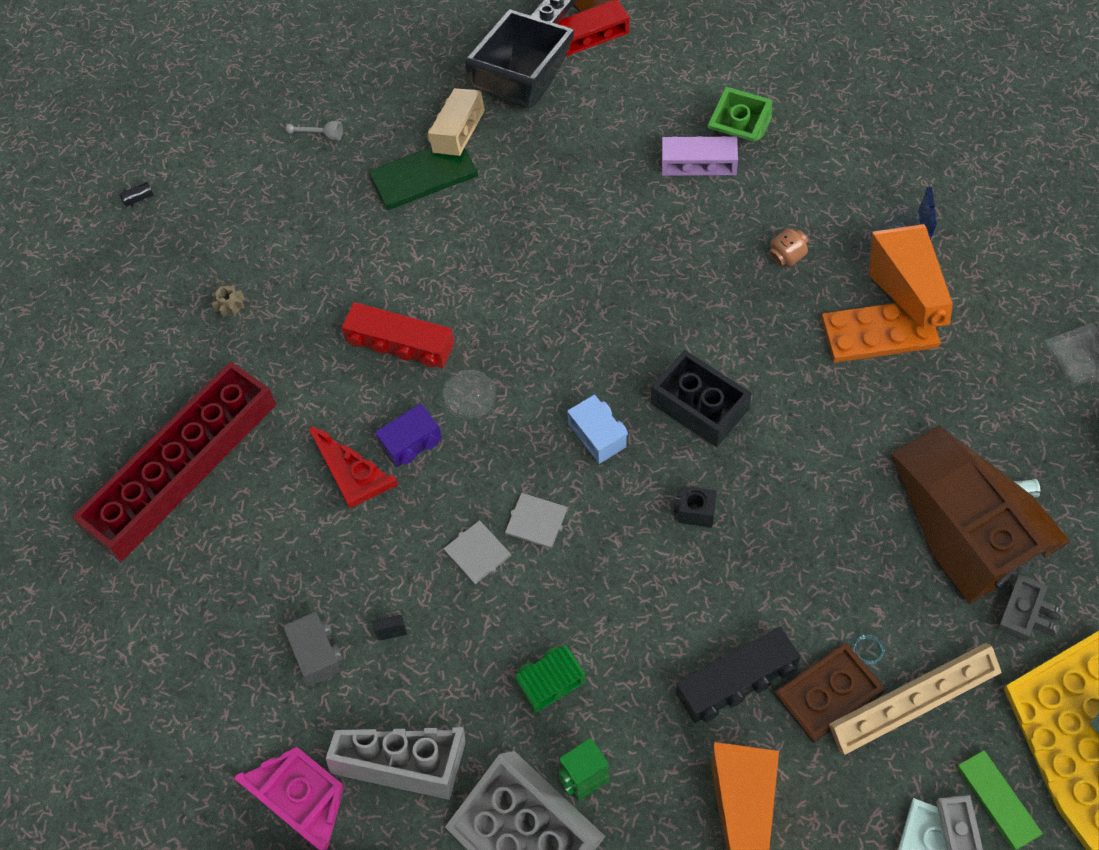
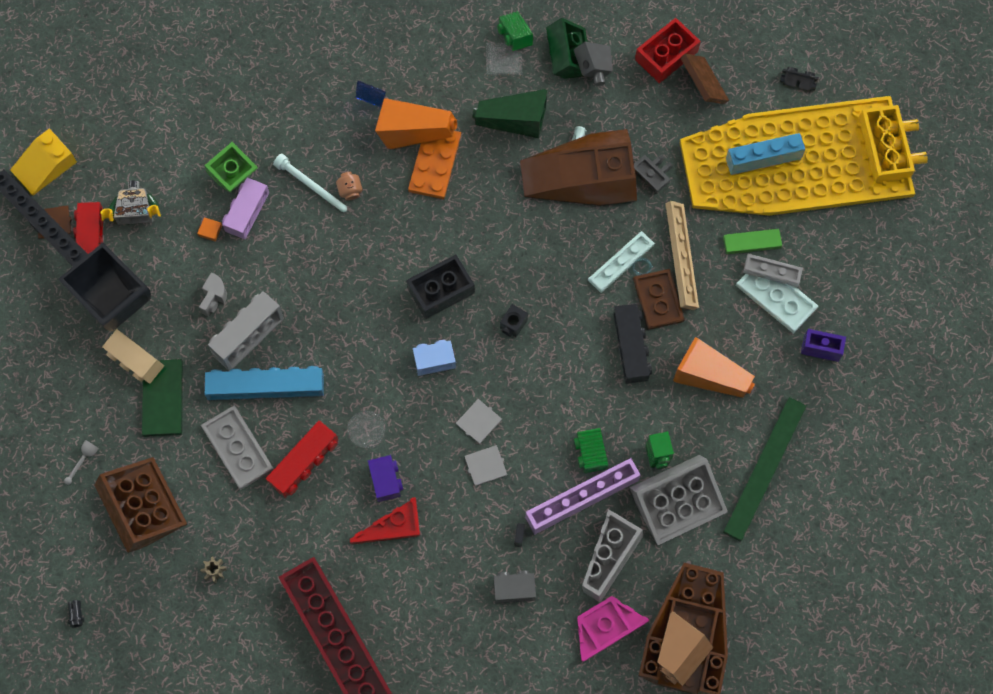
camera: 75 degrees left, 10 degrees up
(283, 200) = (139, 503): none -> reddish brown slope
(391, 267) = (237, 447): none -> light grey tile
(475, 689) = (582, 496): none -> lavender brick
(482, 263) = (264, 383): none -> dark azure brick
(536, 212) = (246, 330): none -> light grey brick
(577, 168) = (214, 291): none -> light grey brick
(641, 49) = (132, 206): none -> torso
(653, 134) = (209, 229): none -> orange tile
(781, 170) = (282, 162): none -> light aqua piece
(862, 618) = (621, 262): none -> light aqua tile
(1007, 394) = (513, 113): none -> dark green slope

